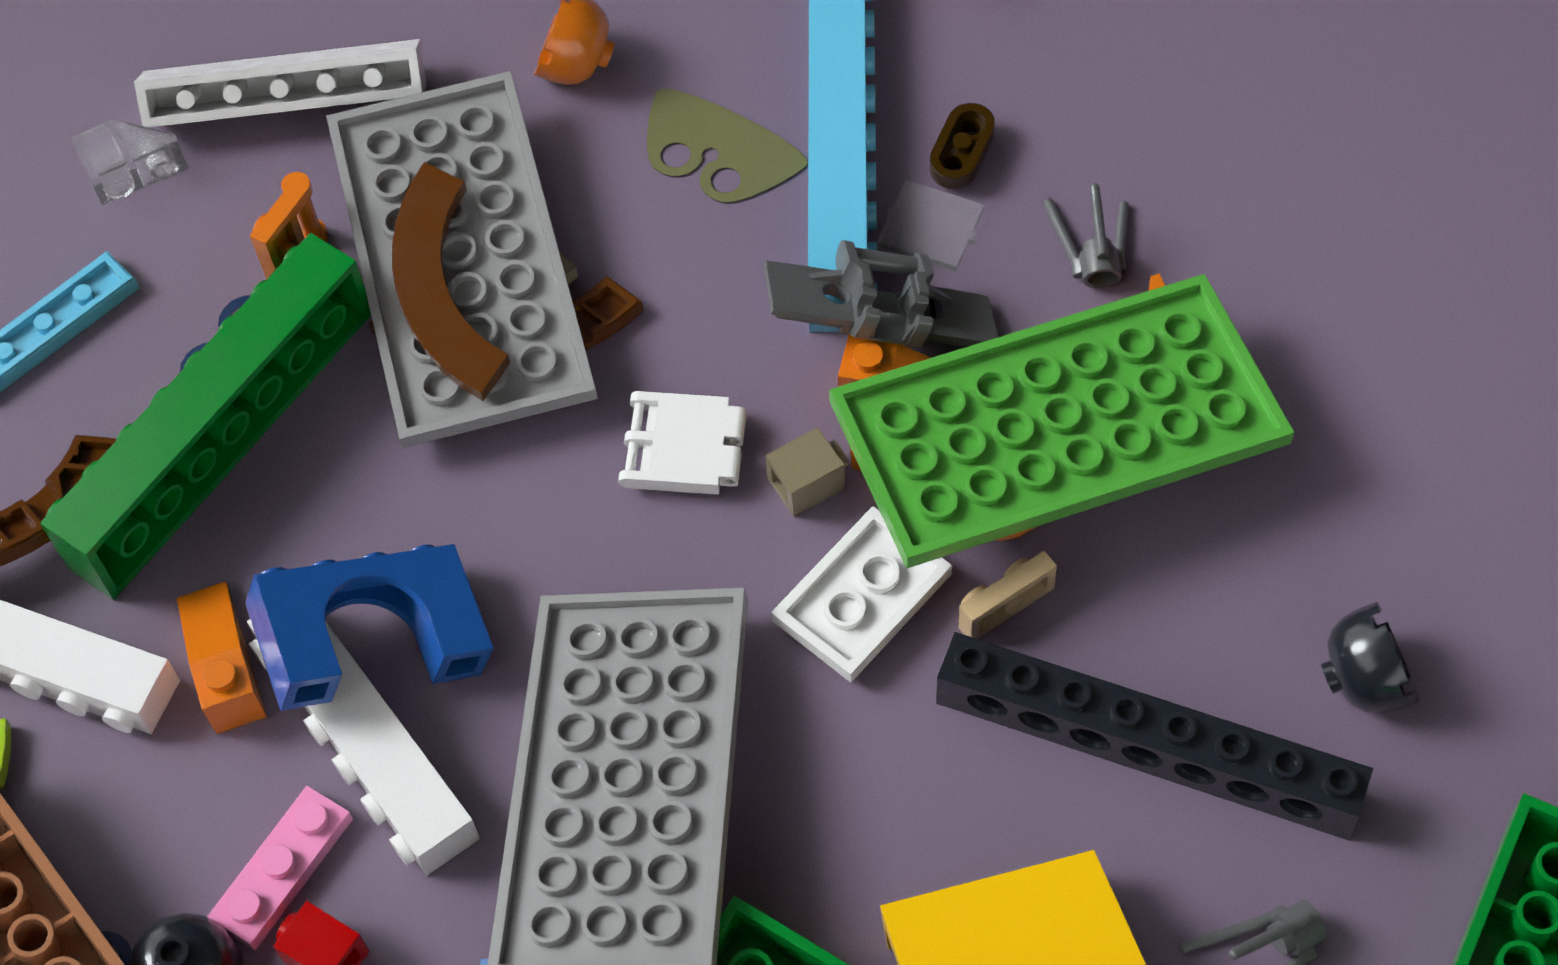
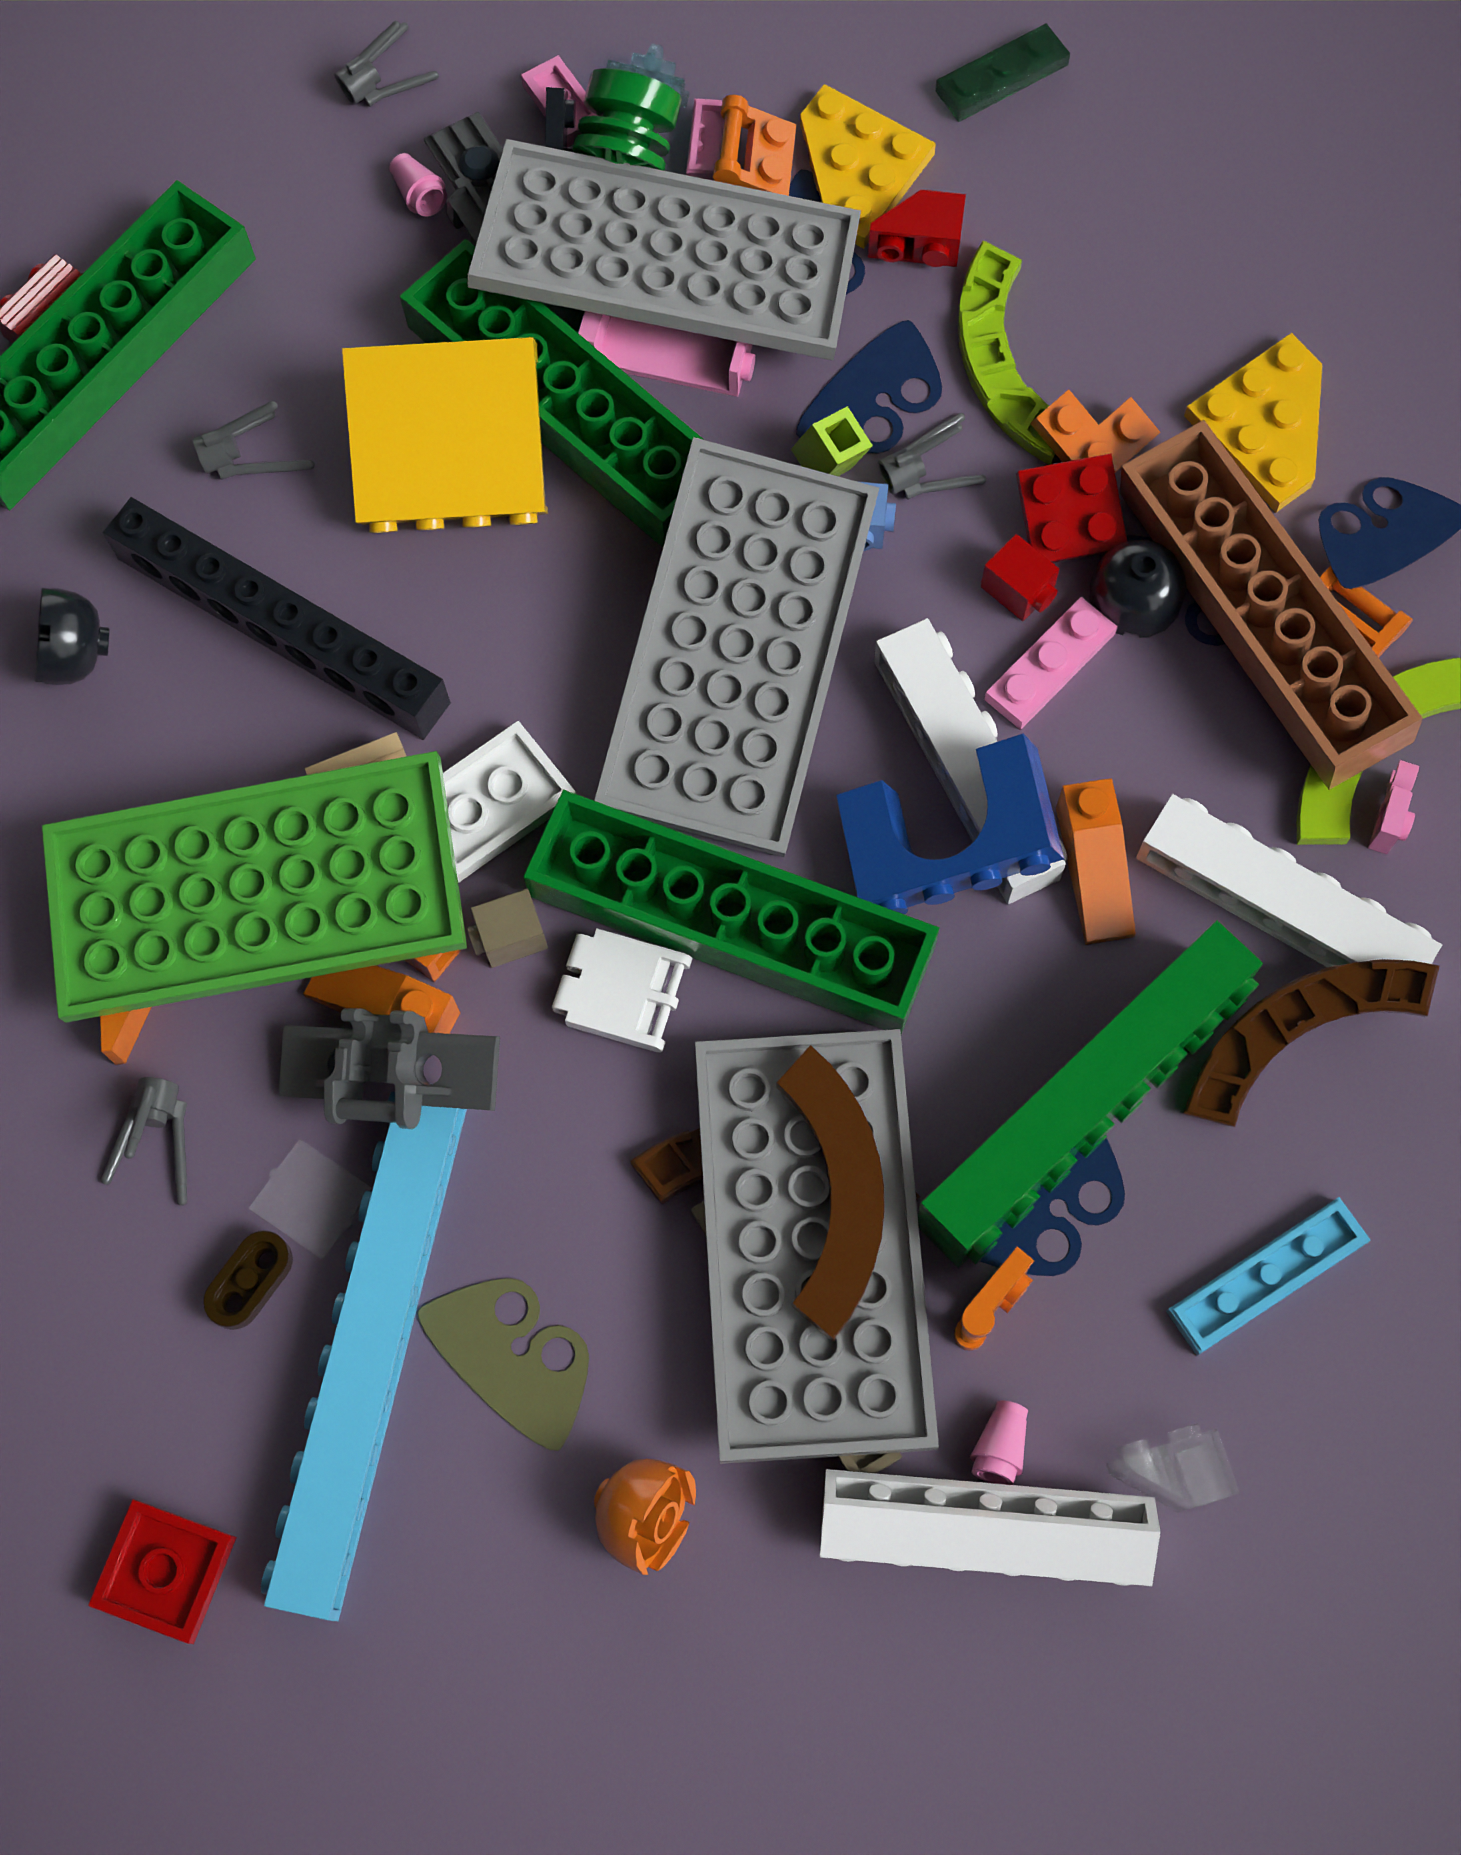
camera: 170 degrees left, 10 degrees up
(276, 150) = (1001, 1446): none -> bright pink cone
(584, 516) = (731, 911): none -> green brick

